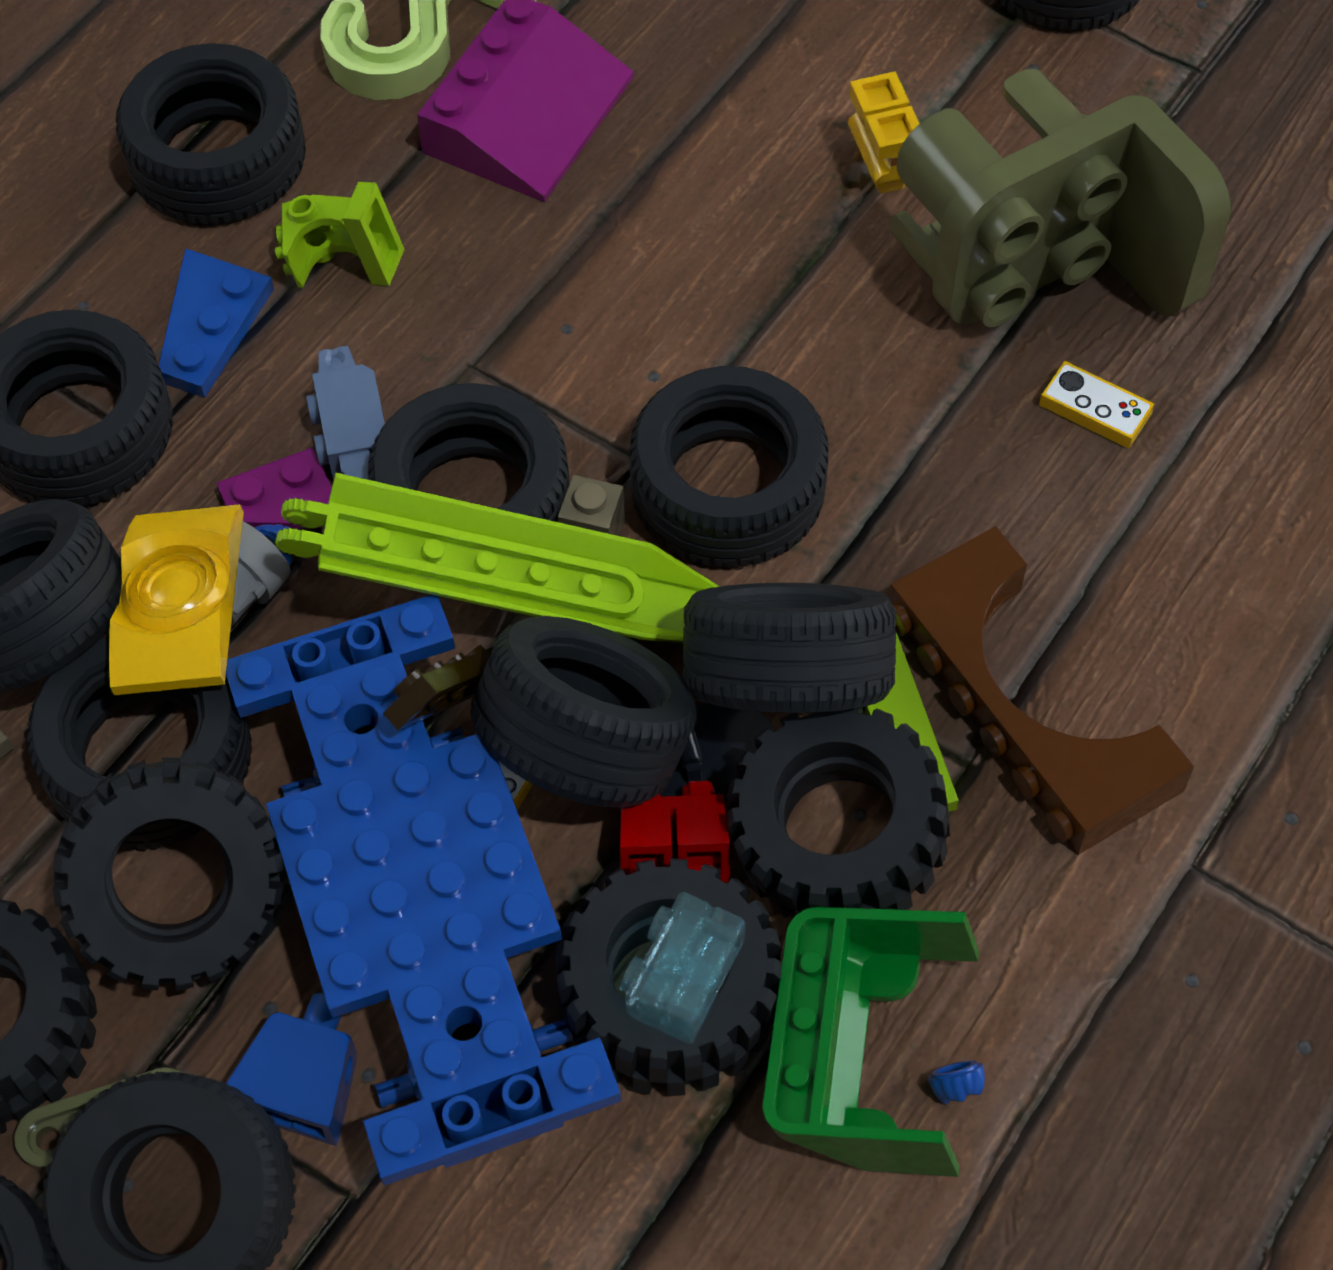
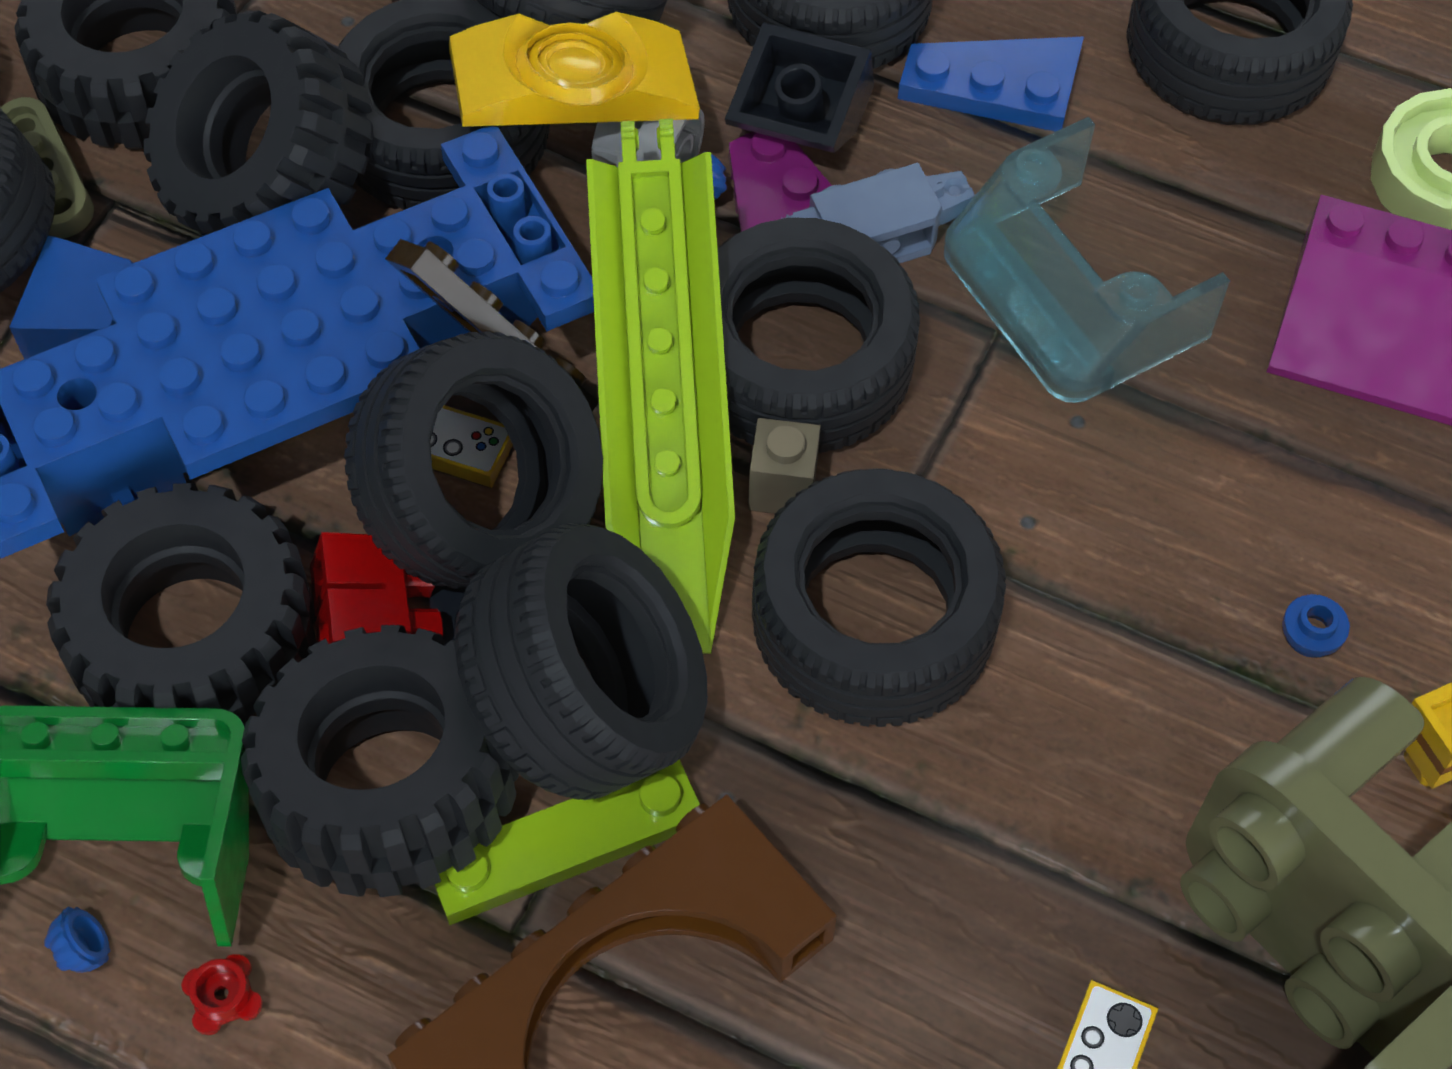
camera: 80 degrees right, 0 degrees up
(206, 448) = (803, 88): none -> black slope
(322, 225) = (1136, 148): lime tile -> none
(446, 316) = (1046, 296): none -> clear light blue windscreen
(683, 966) = (136, 585): clear light blue brick -> none
(777, 215) = (1311, 640): none -> blue plate
(1015, 956) = (204, 982): none -> red plate

